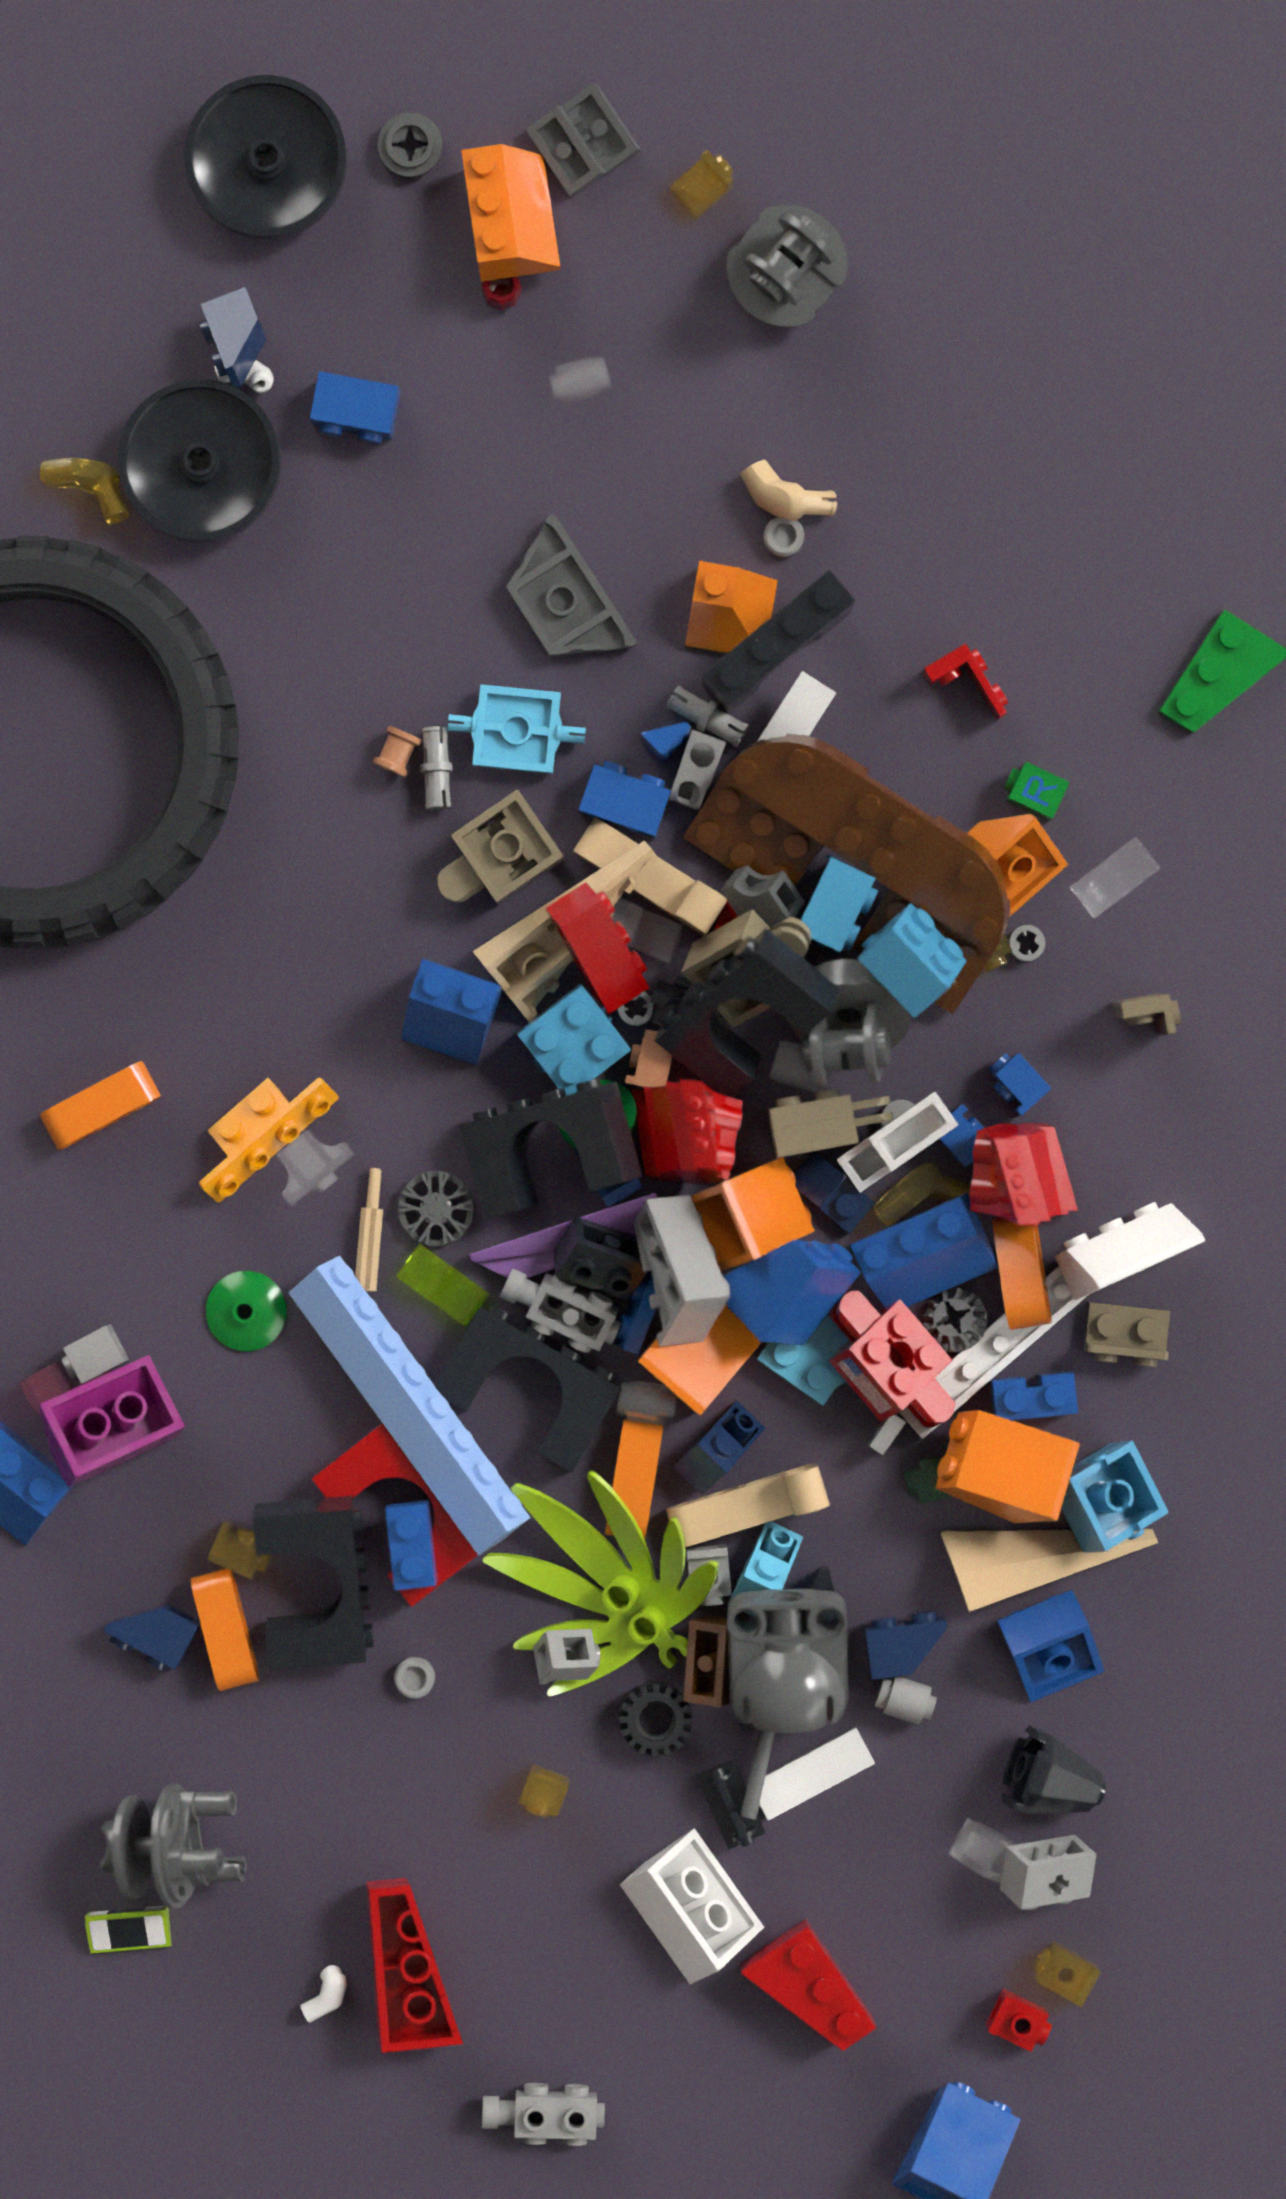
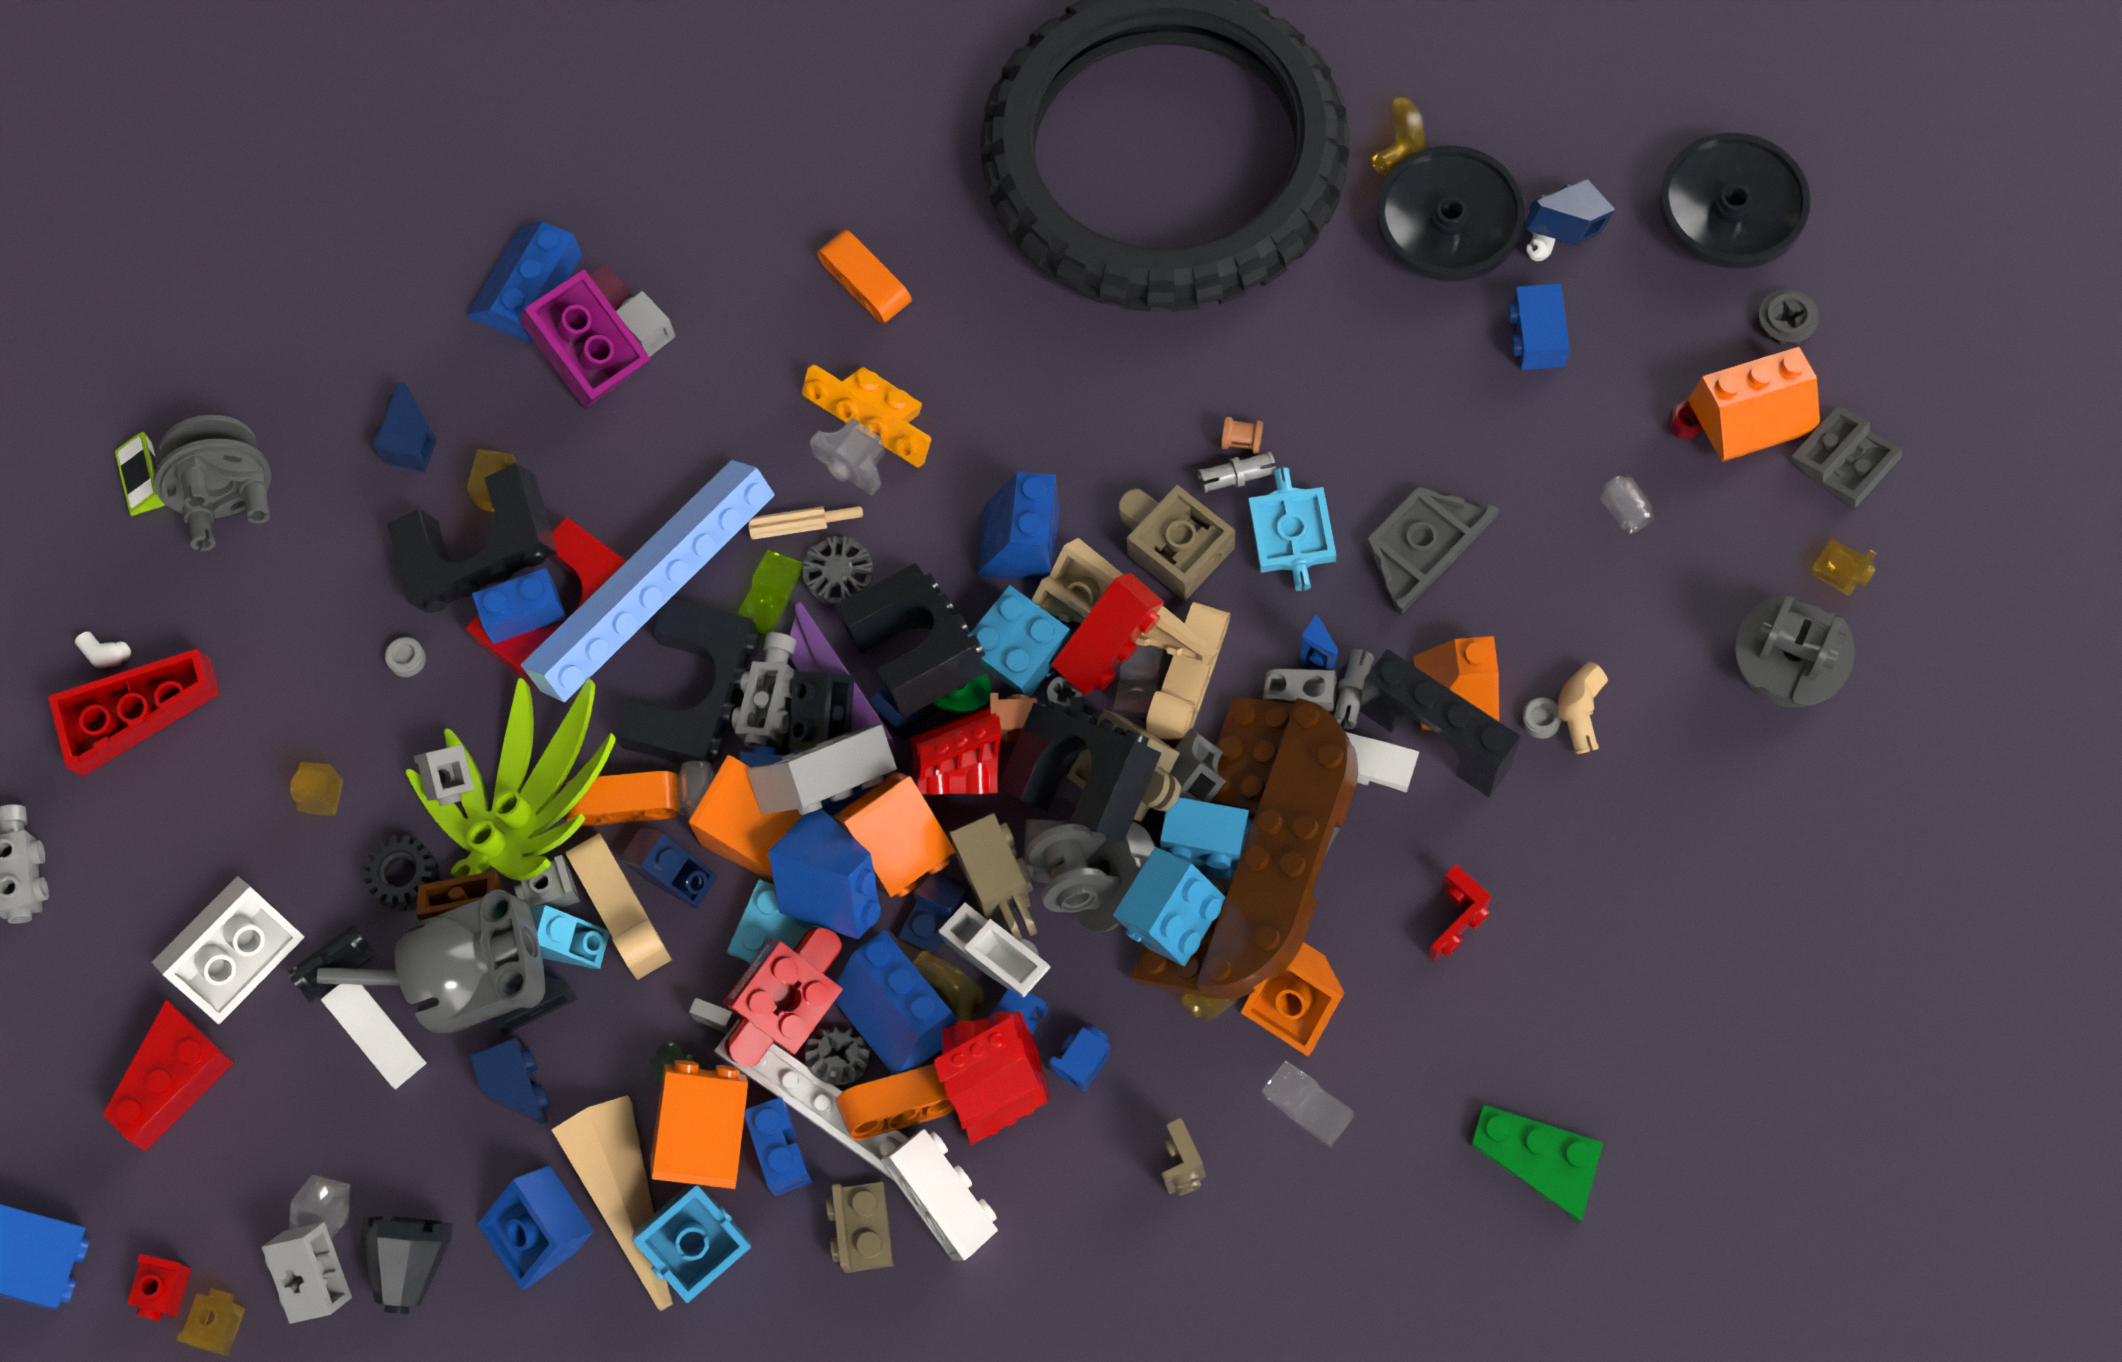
camera: 85 degrees right, 20 degrees down
(225, 1629) = (419, 485): orange beam -> none
(267, 1307) = (711, 453): green dish -> none
(625, 799) = (1252, 635): blue brick -> none
(905, 1699) = (458, 1098): light grey brick -> none
(1035, 790) = (1370, 1003): green brick -> none
(1039, 941) = (1213, 1024): light grey bush -> none

